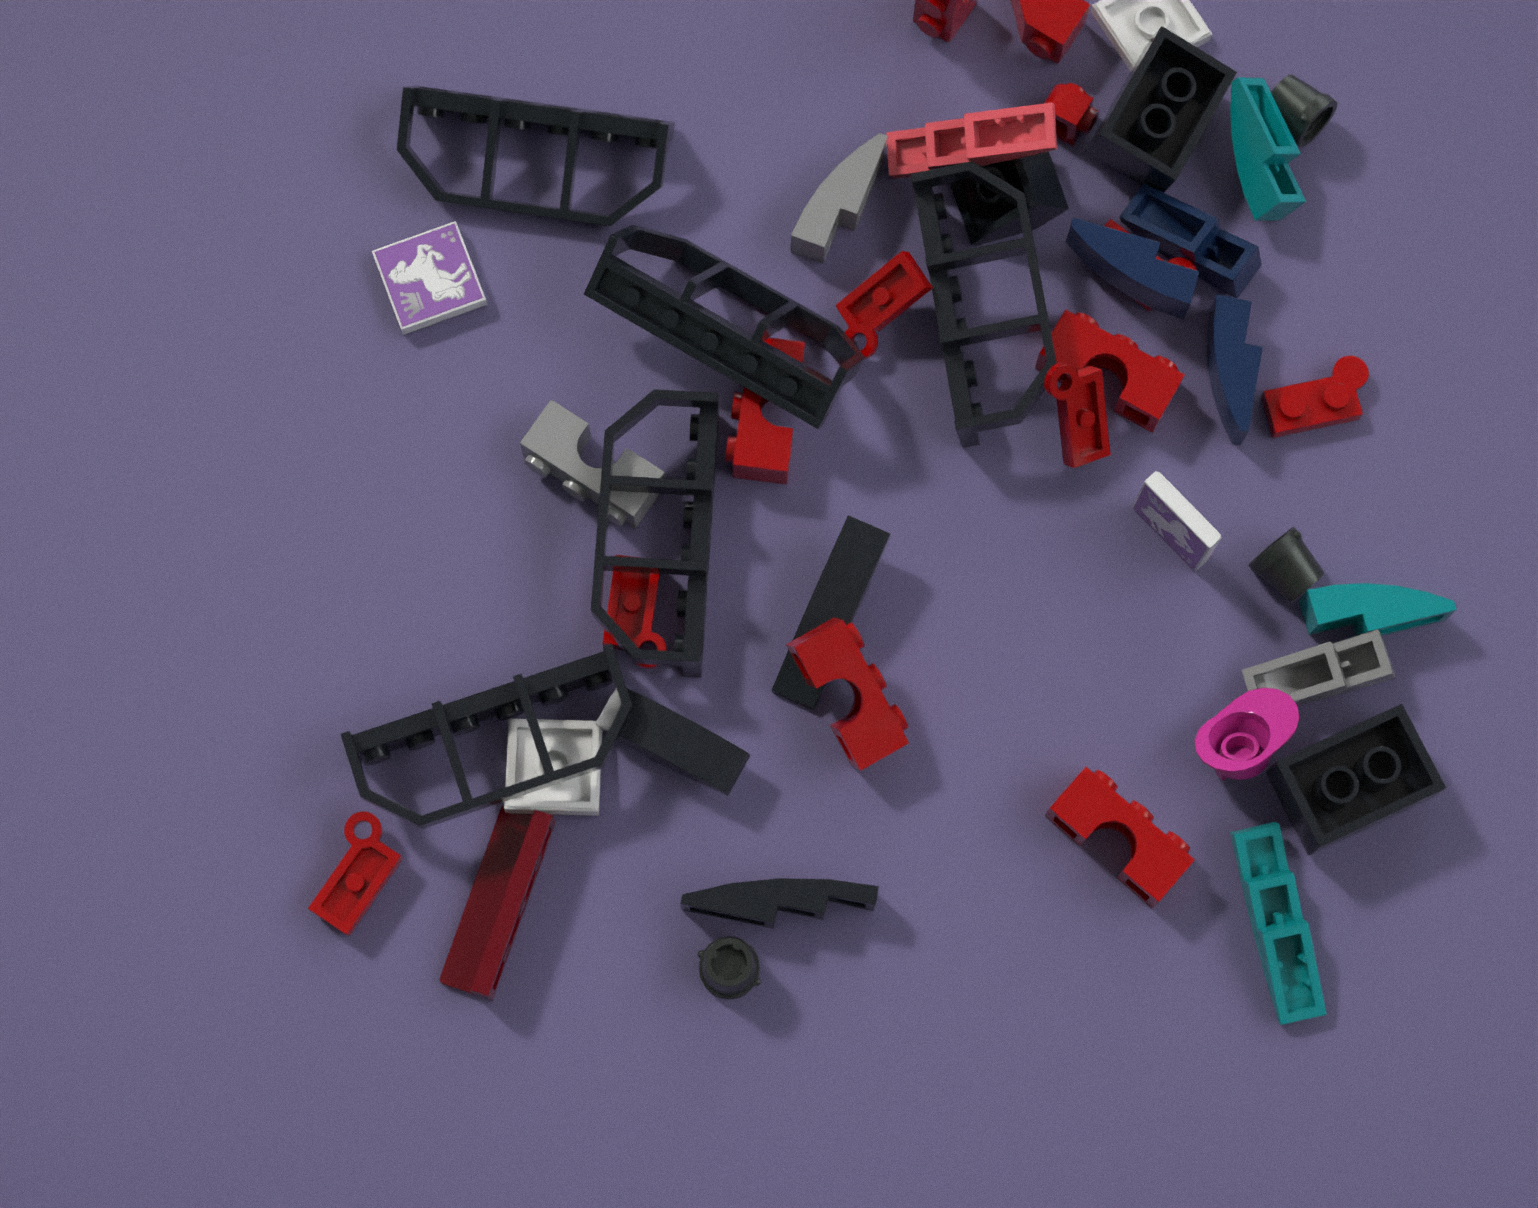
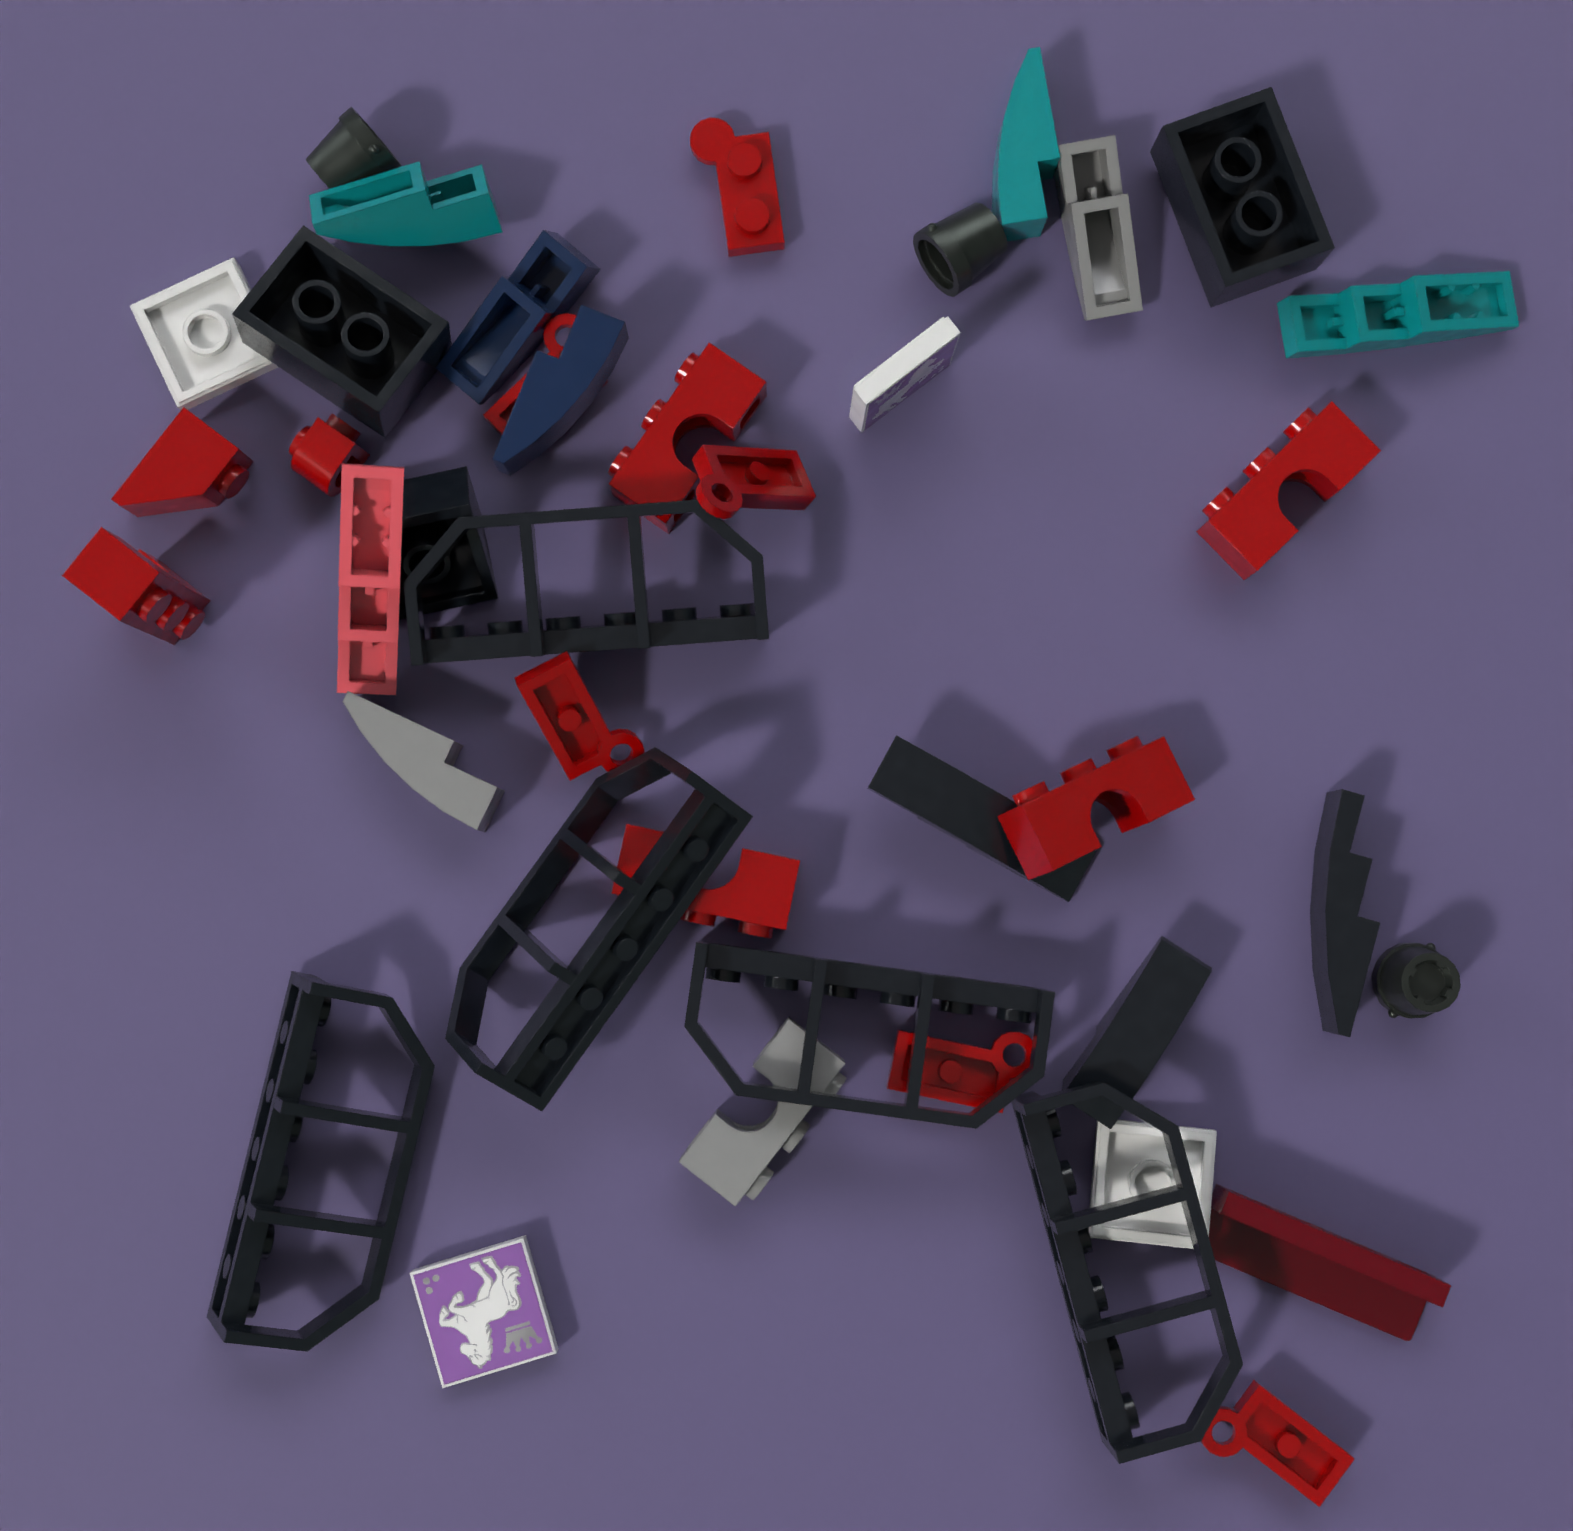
camera: 90 degrees left, 10 degrees up
(1232, 364) = (694, 284): dark blue slope -> none
(1247, 733) = (1174, 319): dark pink piece -> none

